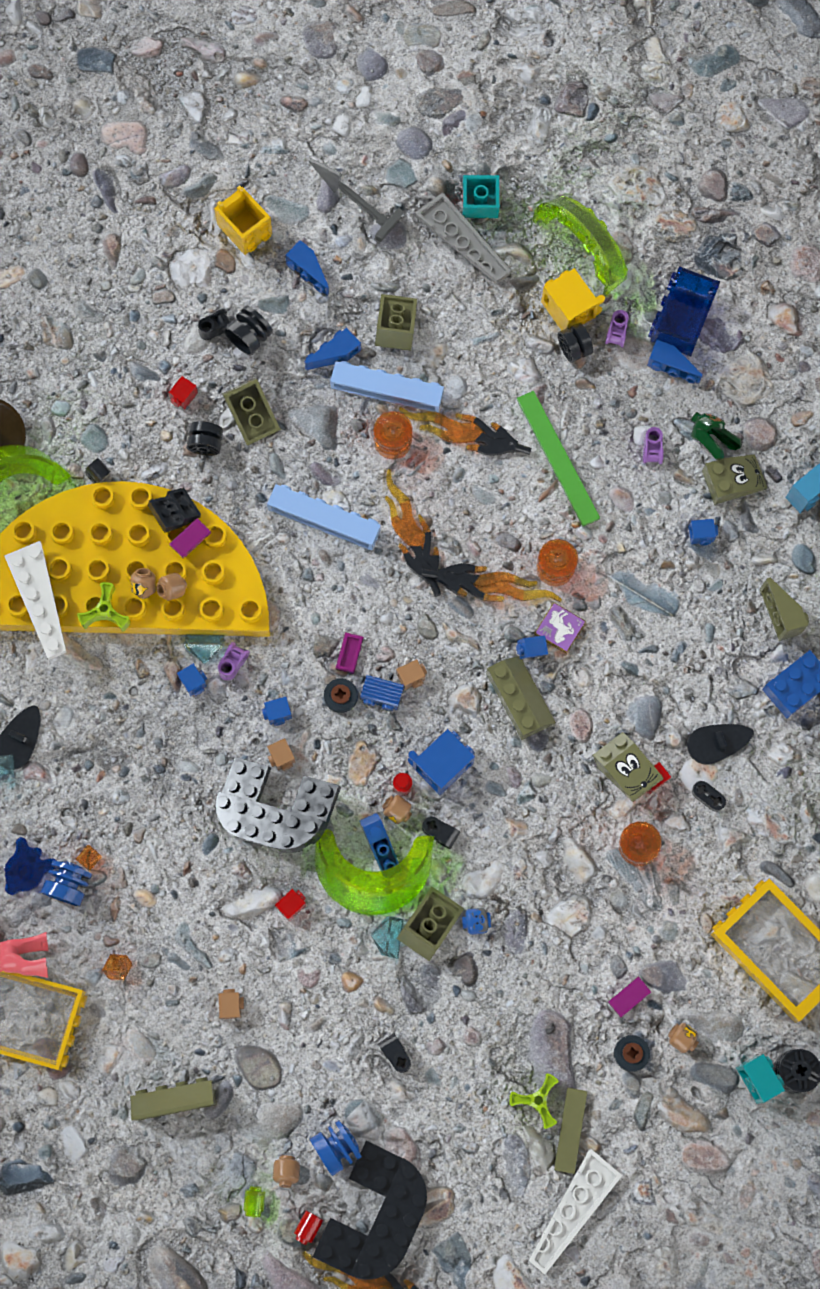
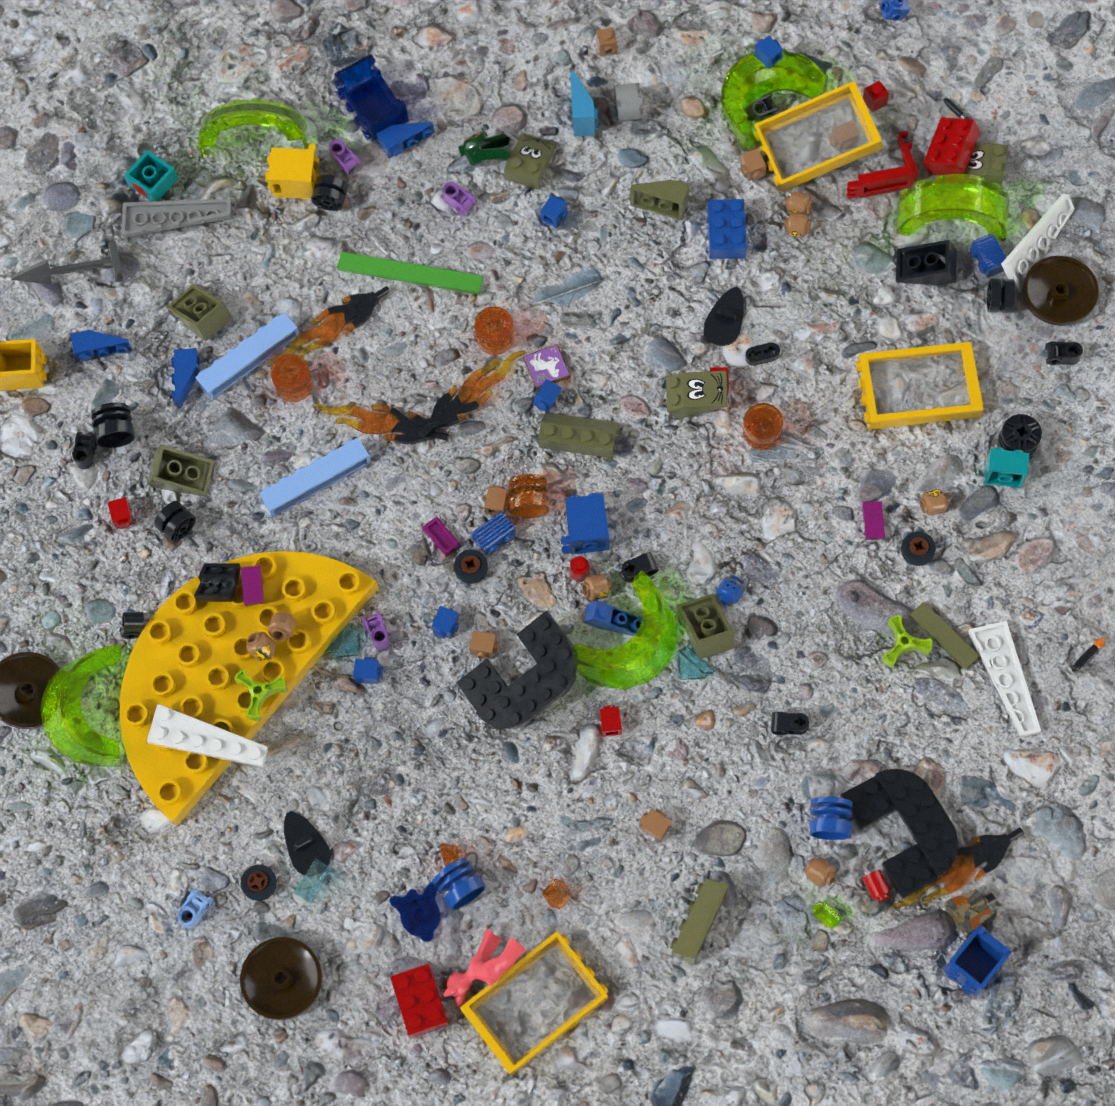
camera: 45 degrees left, 5 degrees down
(436, 694) = (528, 496): none -> clear orange wheel
(661, 1270) = (1088, 654): none -> black piece

